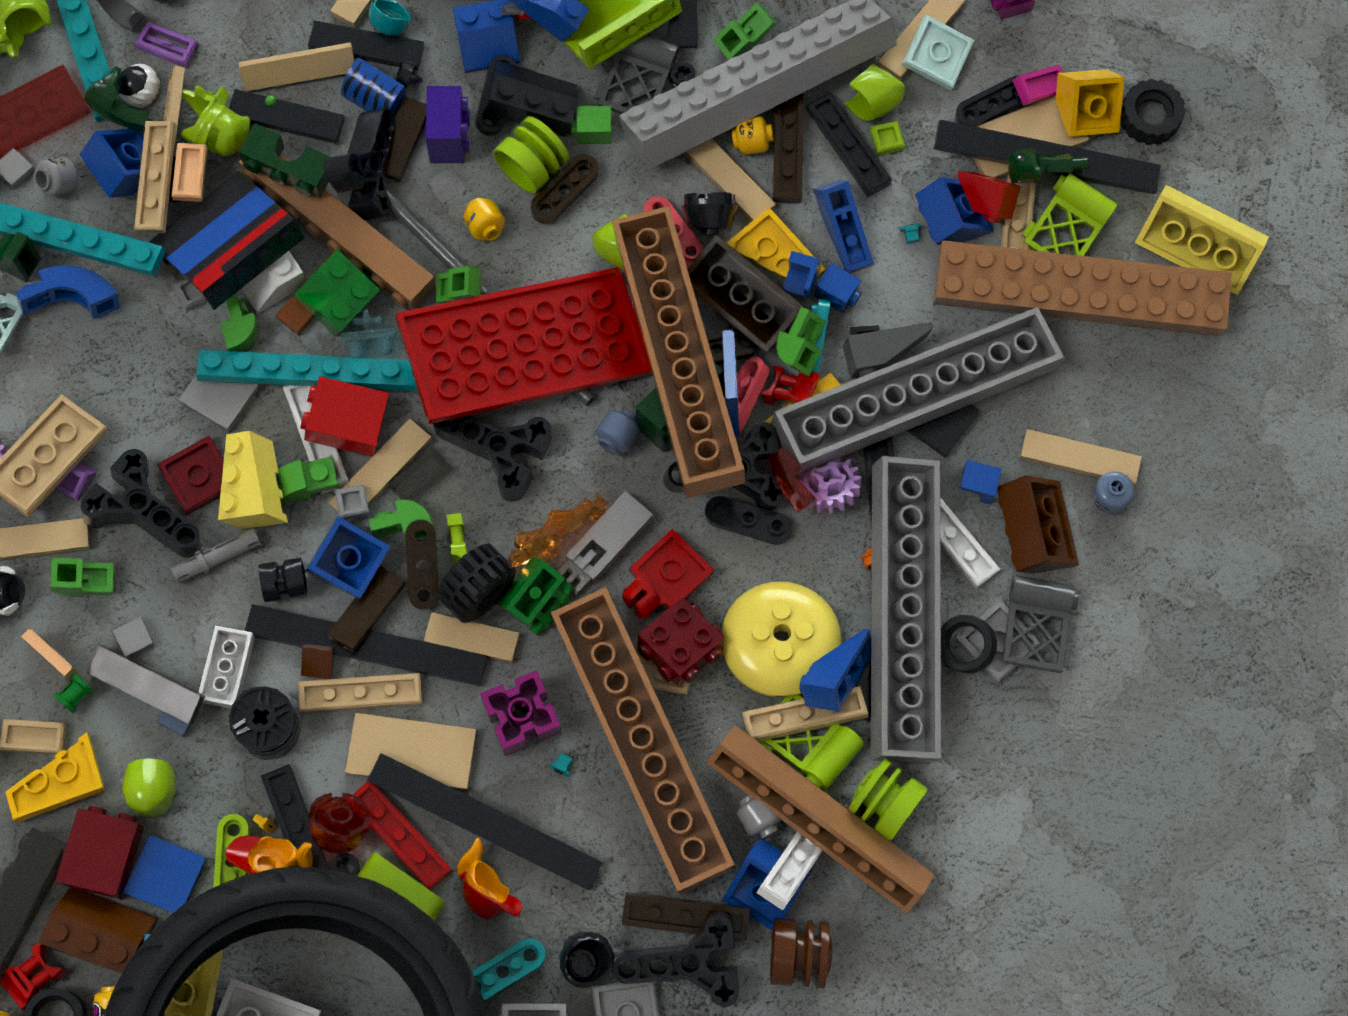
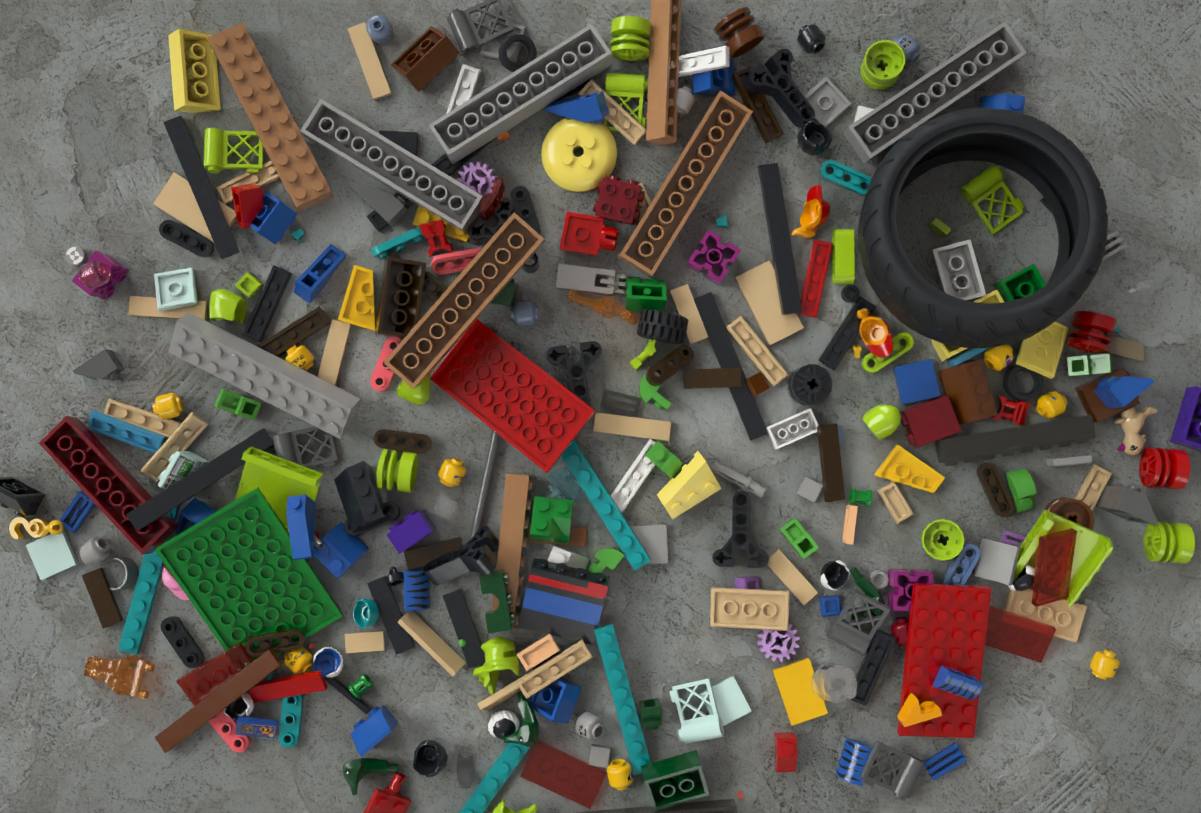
camera: 120 degrees left, 15 degrees up
(72, 285) = (645, 670): blue arch -> none
(164, 54) = (457, 713): medium lavender tile -> none
(194, 474) = (701, 523): dark red tile -> none
(293, 576) = (727, 432): black wheel -> none
(339, 822) = (833, 309): clear red cylinder -> none
(344, 416) = (617, 464): red brick -> none
(347, 558) = (694, 406): blue slope -> none
(352, 502) = (661, 427): light grey tile -> none
(458, 284) = (502, 456): bright green brick -> none
(592, 125) = (353, 451): bright green brick -> none
(678, 68) = (288, 429): black bush -> none
(709, 212) = (363, 349): black cone -> none
(730, 378) = (451, 272): tile -> none
(798, 345) = (414, 245): bright green brick -> none
(801, 274) = (368, 273): blue panel -> none
(839, 288) = (360, 251): blue brick -> none
(981, 480) = (420, 102): blue panel -> none
(1027, 166) = (215, 189): dark green animal -> none
(1037, 84) = (157, 218): dark pink tile -> none
(1090, 101) = (149, 183): yellow slope -> none
(1160, 92) = (147, 147): black tyre -> none

